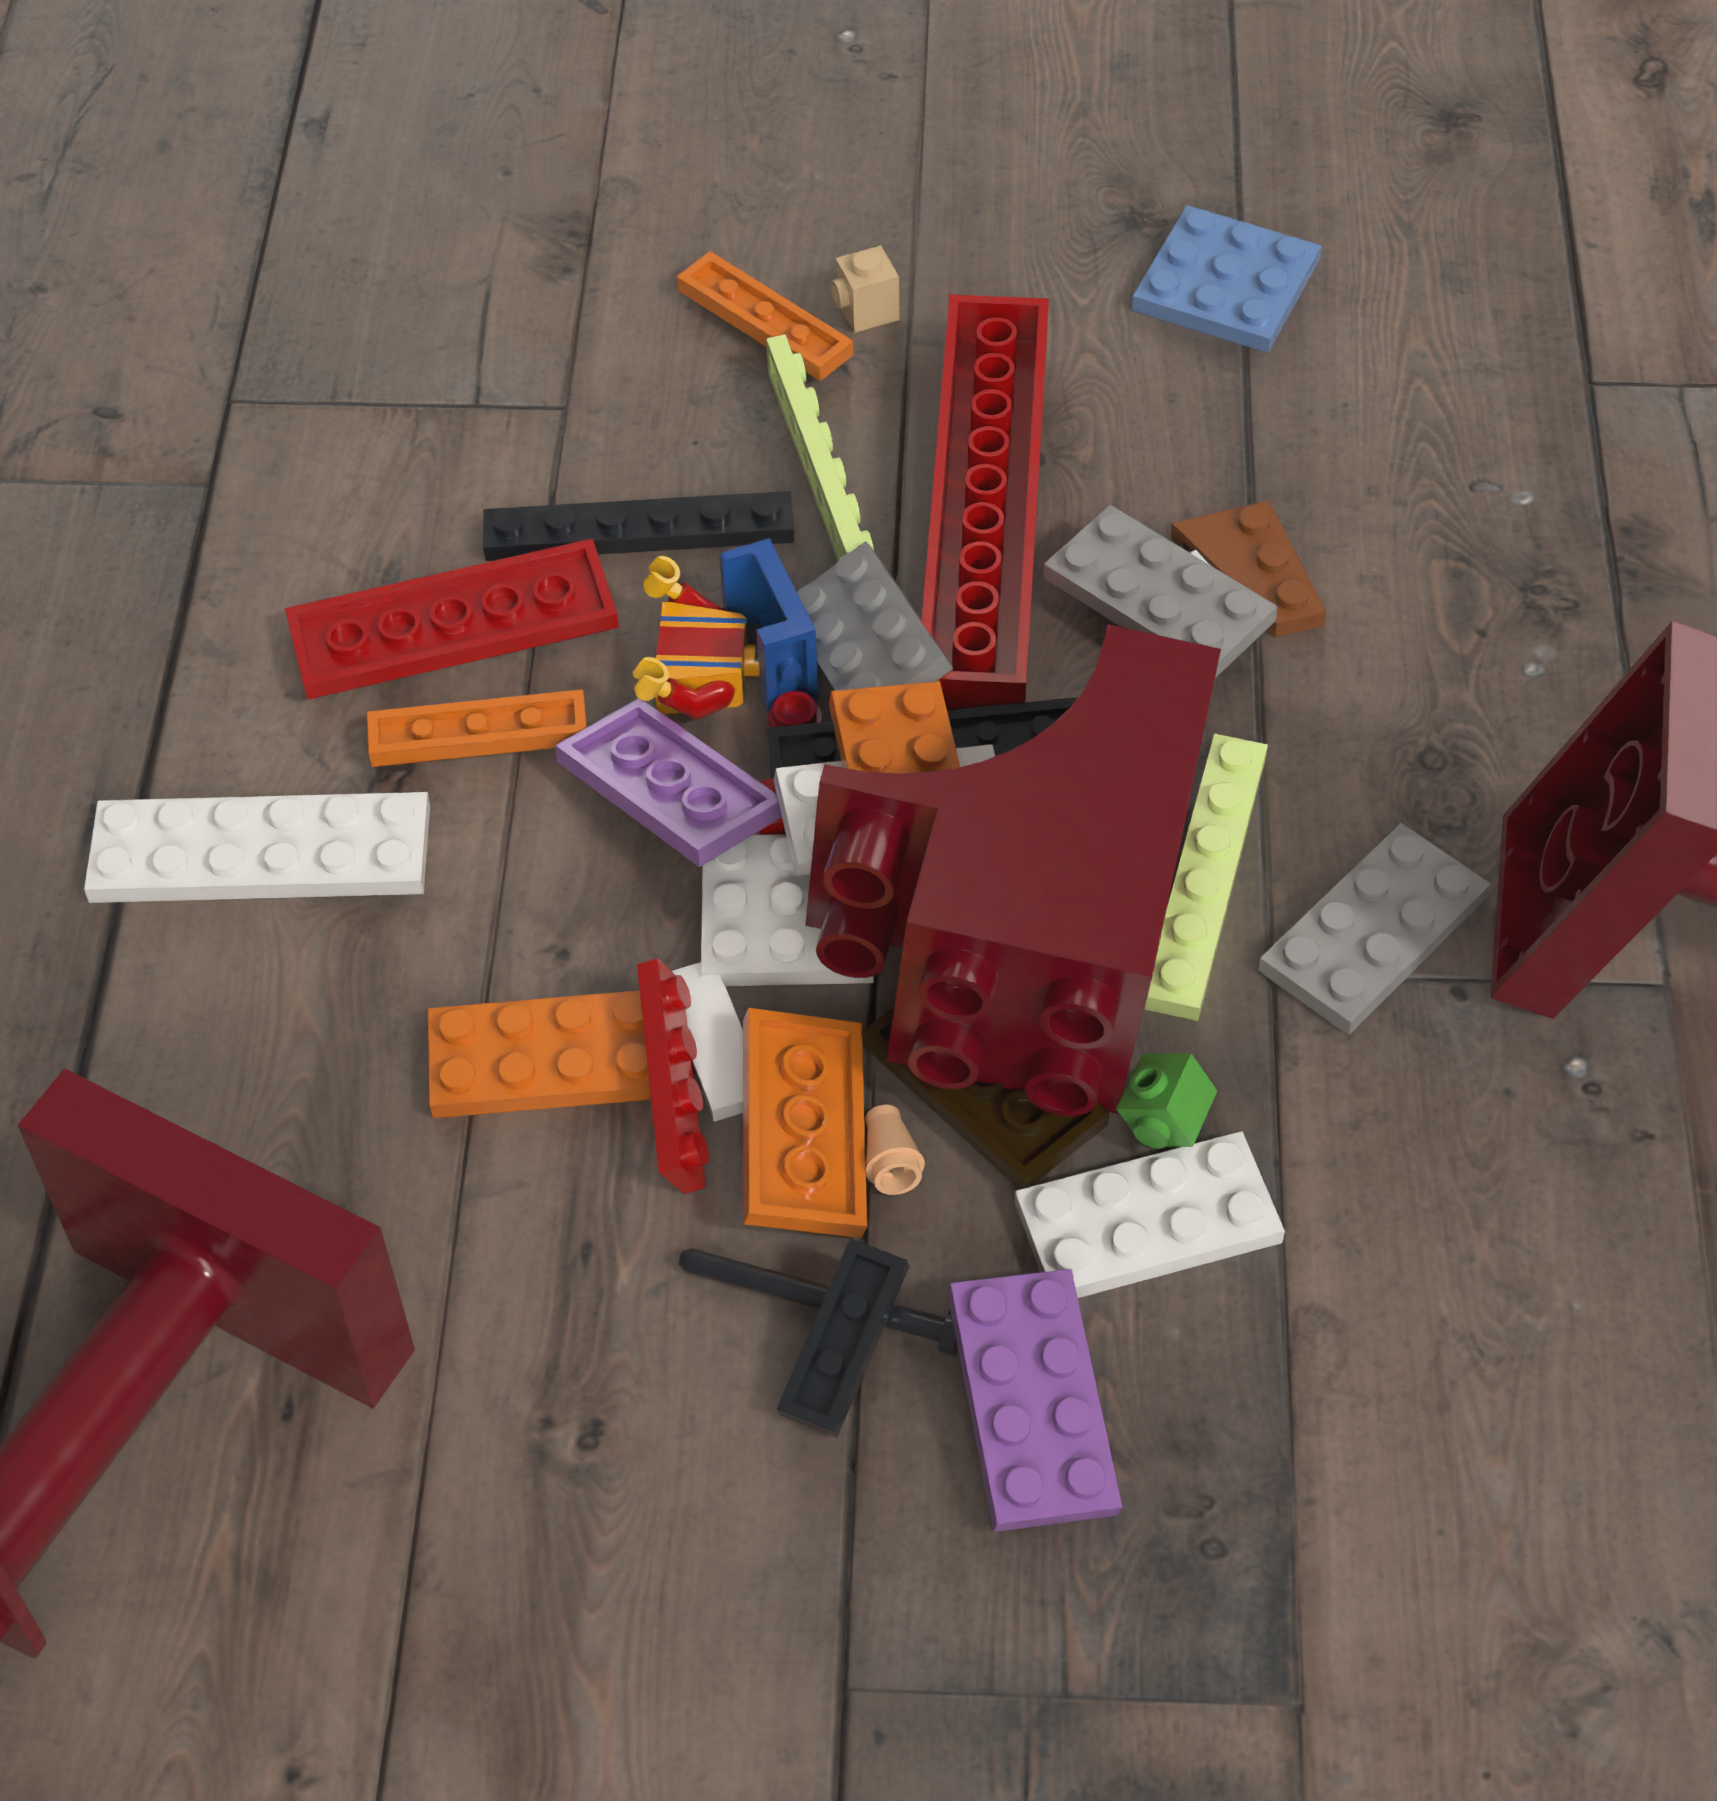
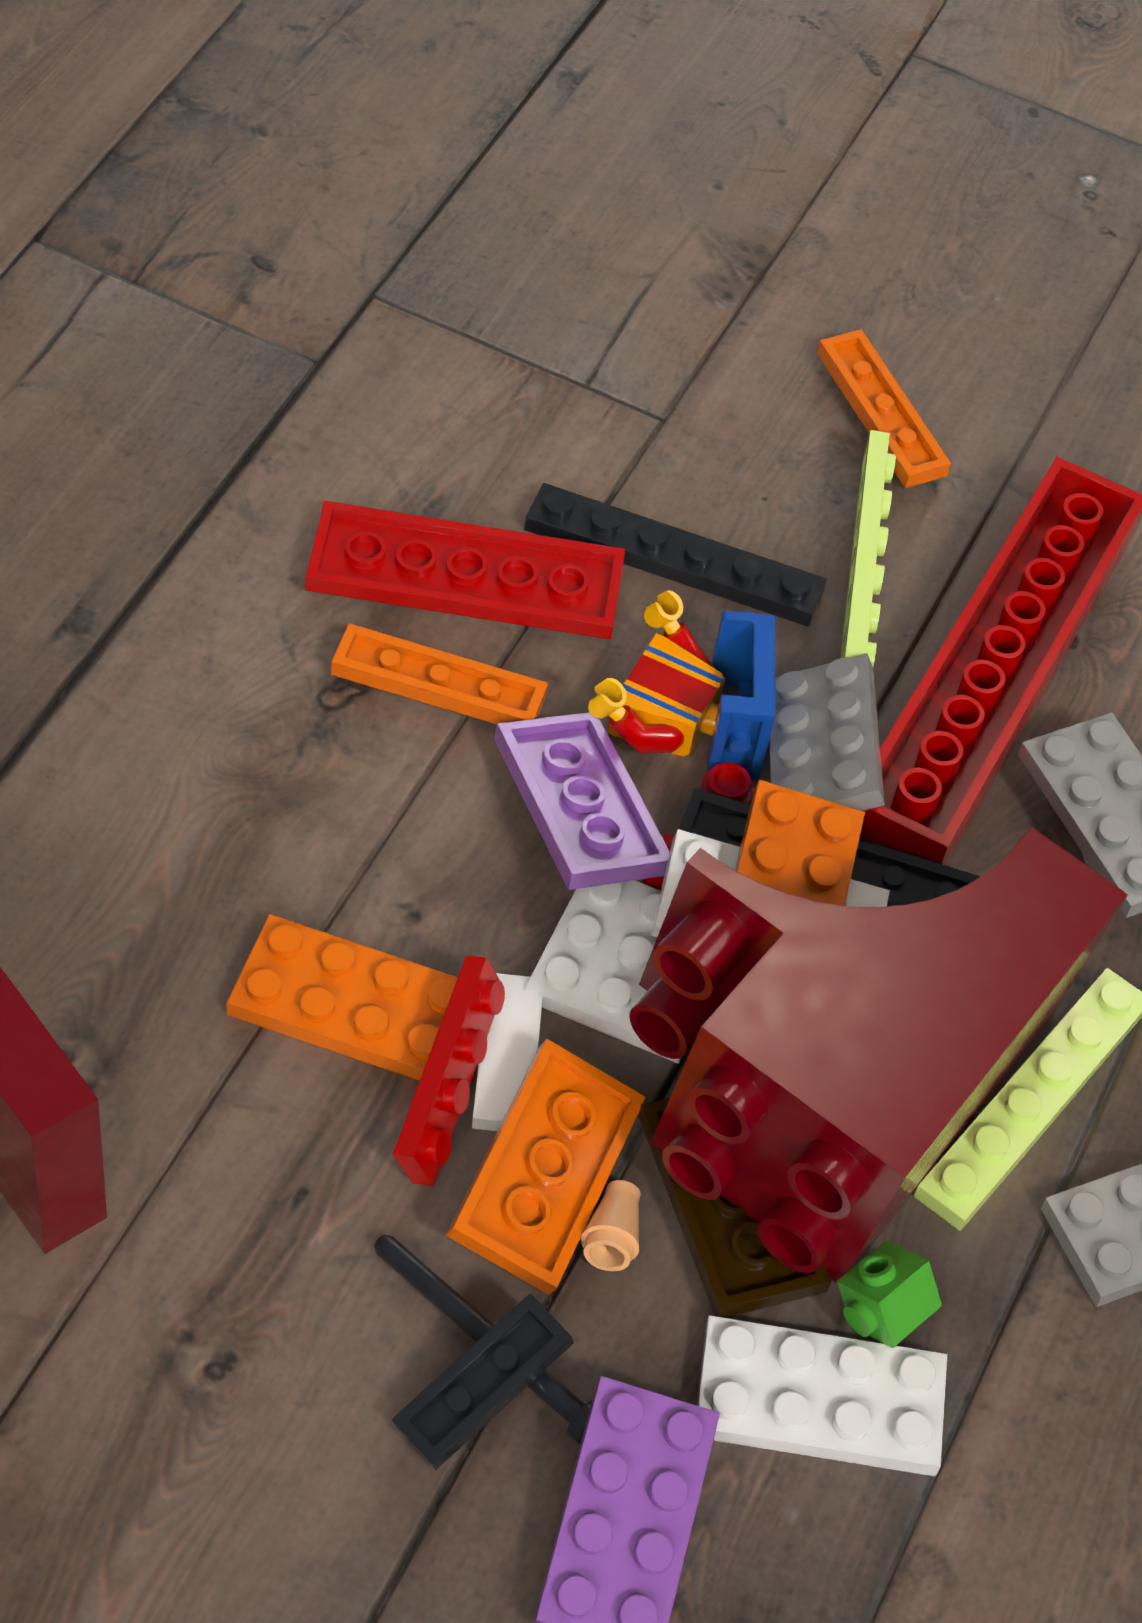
camera: 15 degrees right, 0 degrees up
(258, 847) = (199, 705): white plate -> none
(866, 289) = (987, 420): tan brick -> none

